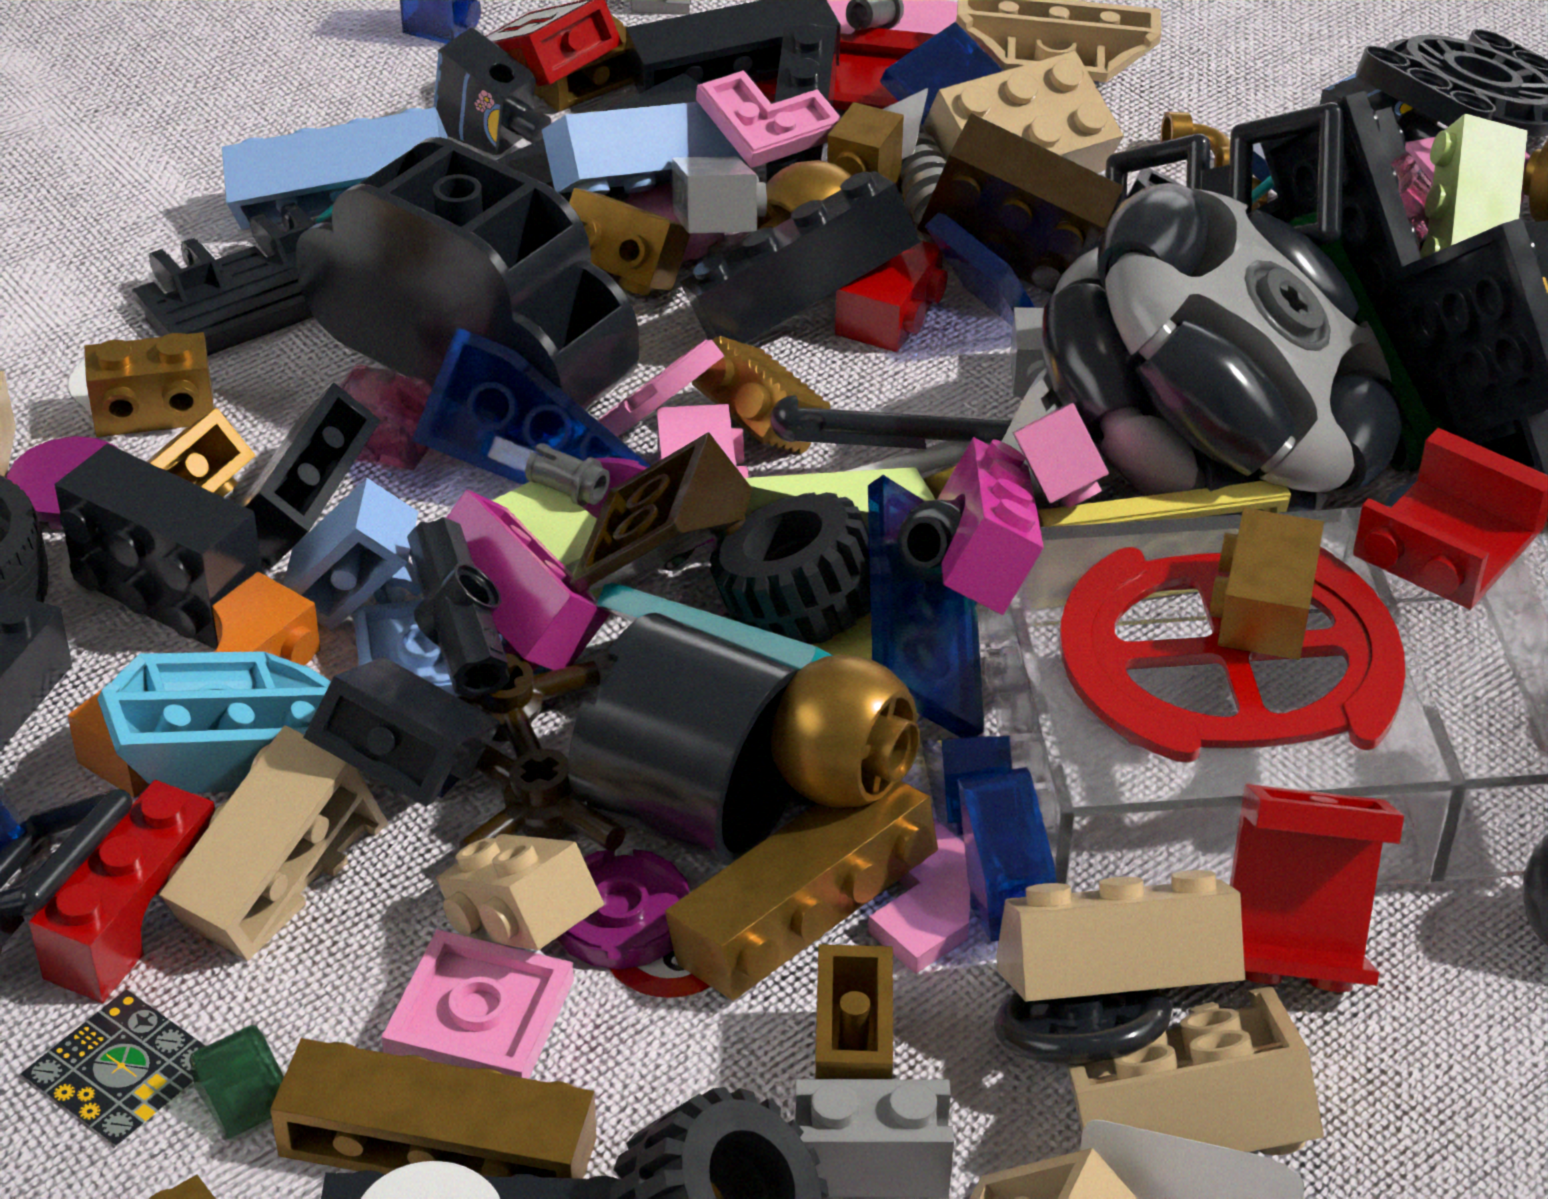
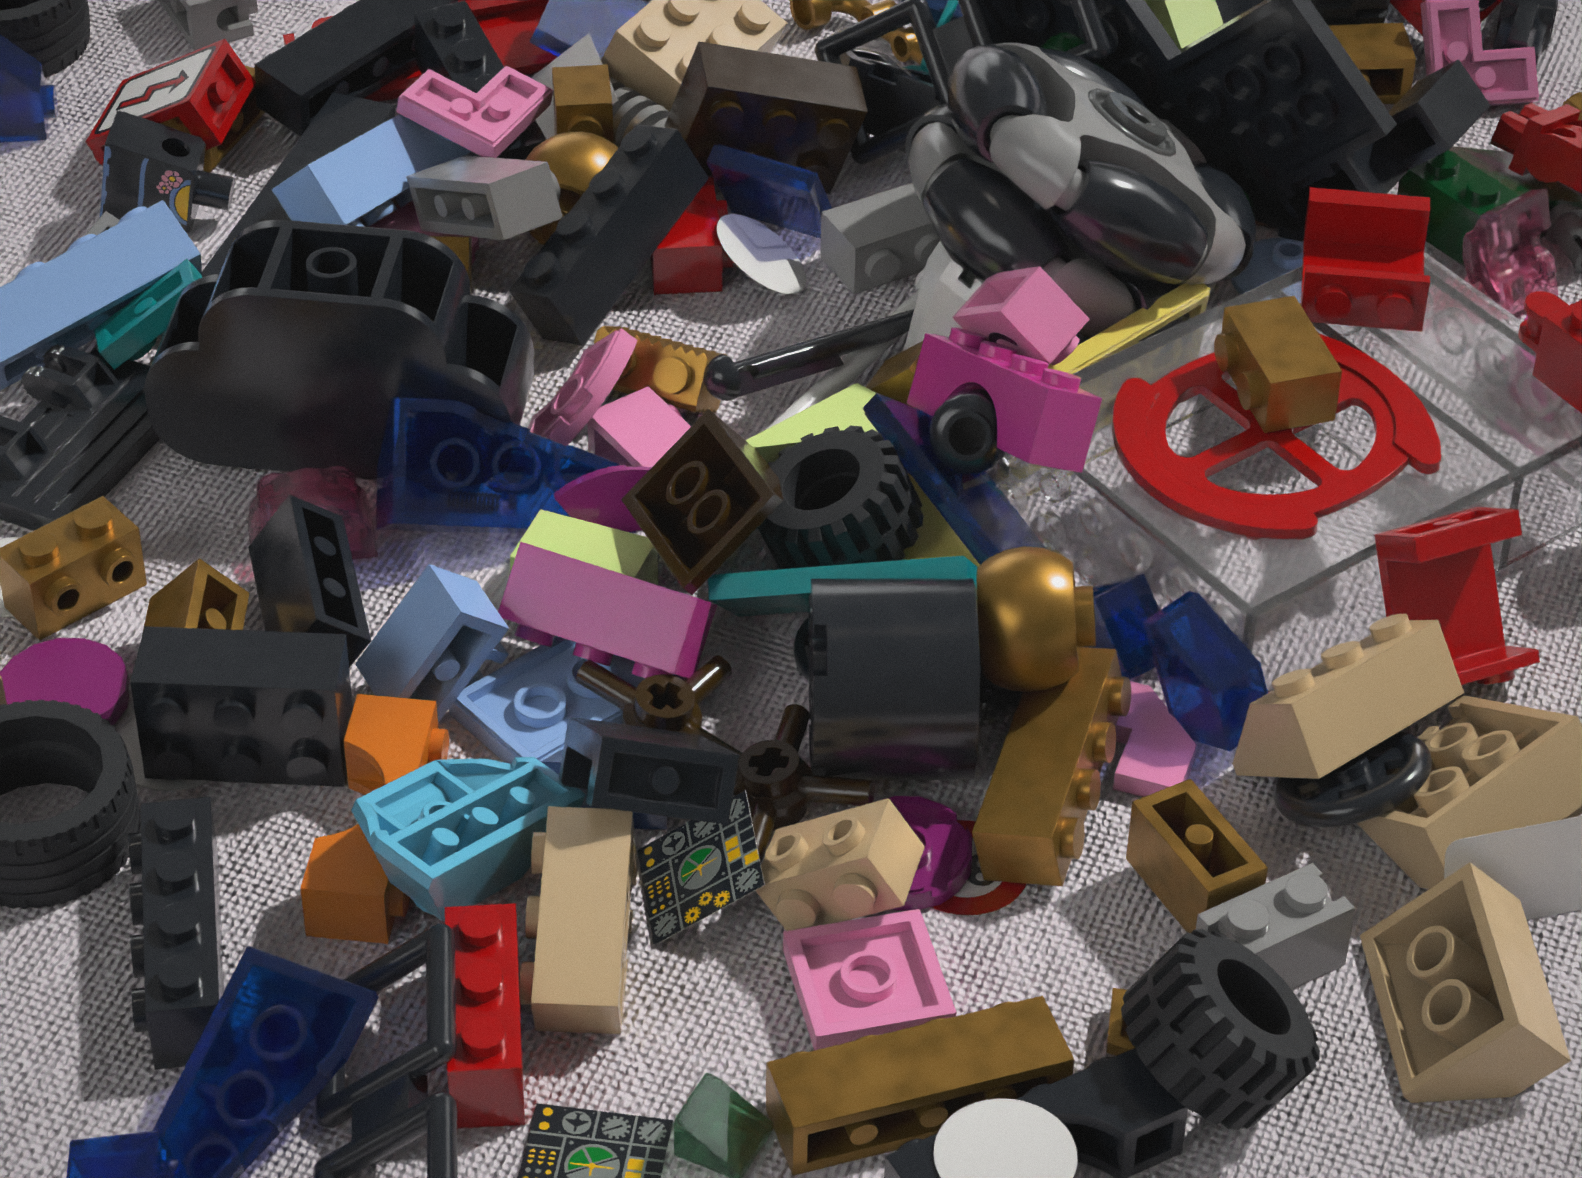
camera: 30 degrees left, 0 degrees up
(419, 842) = (699, 870): none -> sticker
(458, 608) = (594, 649): black piece -> none
(581, 479) = (574, 499): dark grey pin -> none
(941, 328) = (761, 254): none -> white sticker

